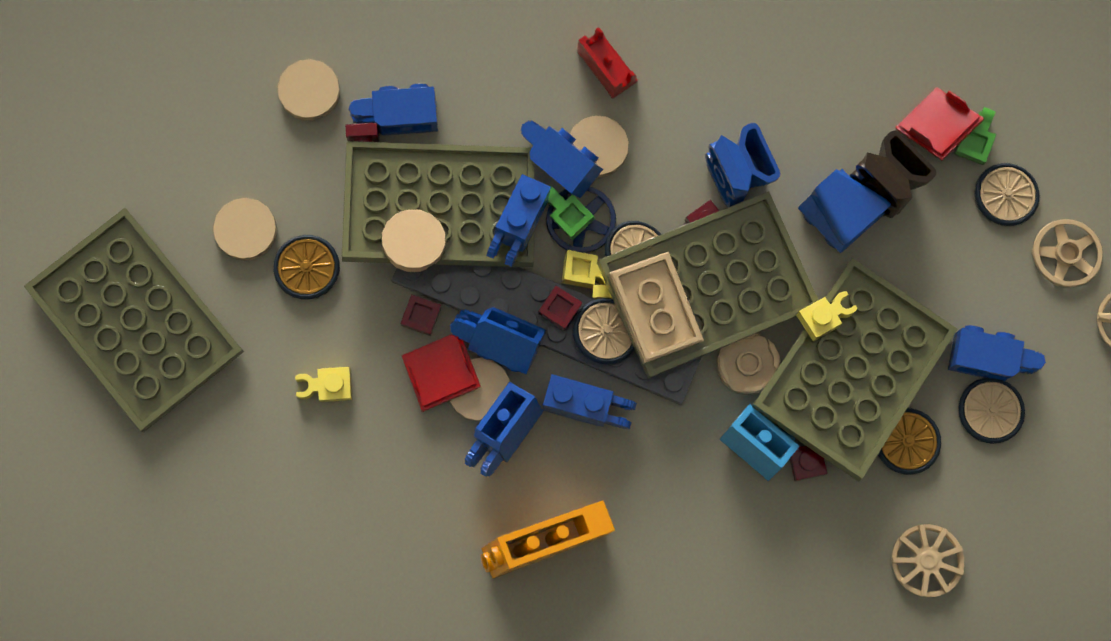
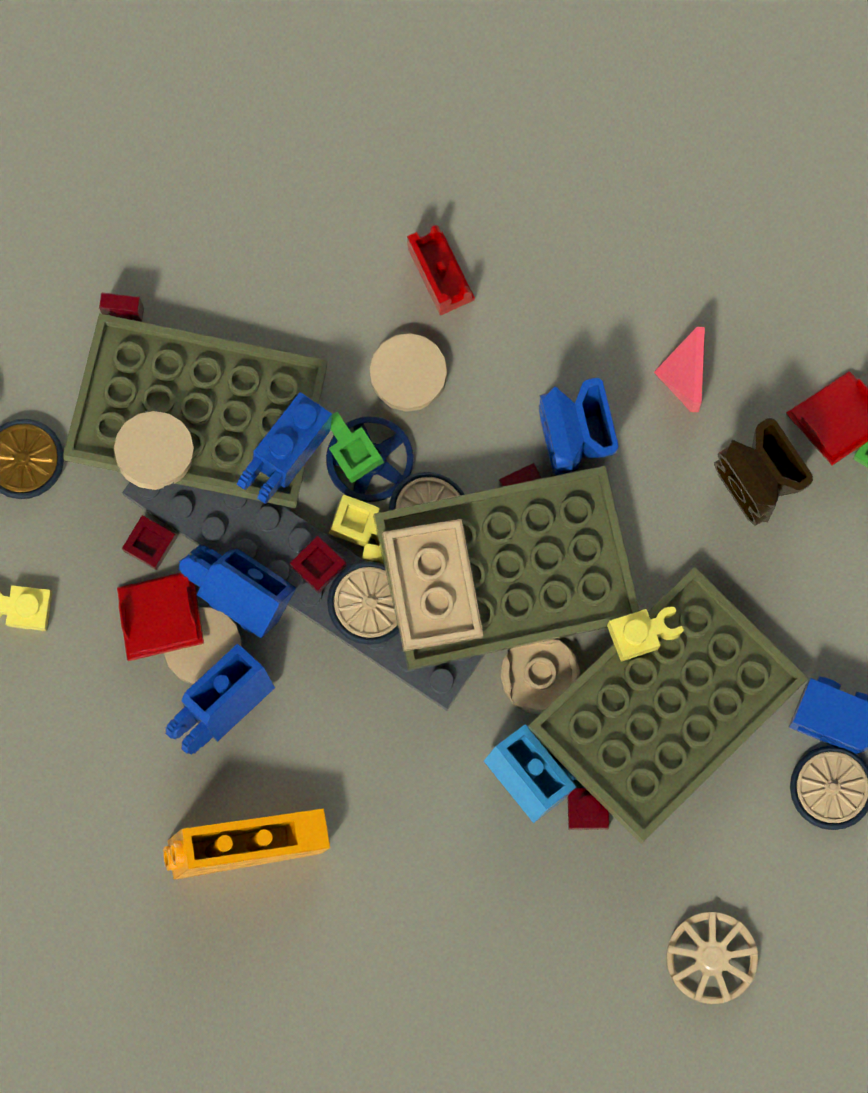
camera: 20 degrees right, 0 degrees up
(308, 89) = (67, 241): tan tile -> none
(398, 110) = (172, 285): blue hinge -> none
(561, 158) = (357, 379): blue hinge -> none
(585, 402) = (325, 685): blue hinge -> none
(813, 108) = (684, 370): none -> coral slope
(843, 209) = (694, 504): blue piece -> none
(912, 444) = (721, 809): pearl gold wheel -> none

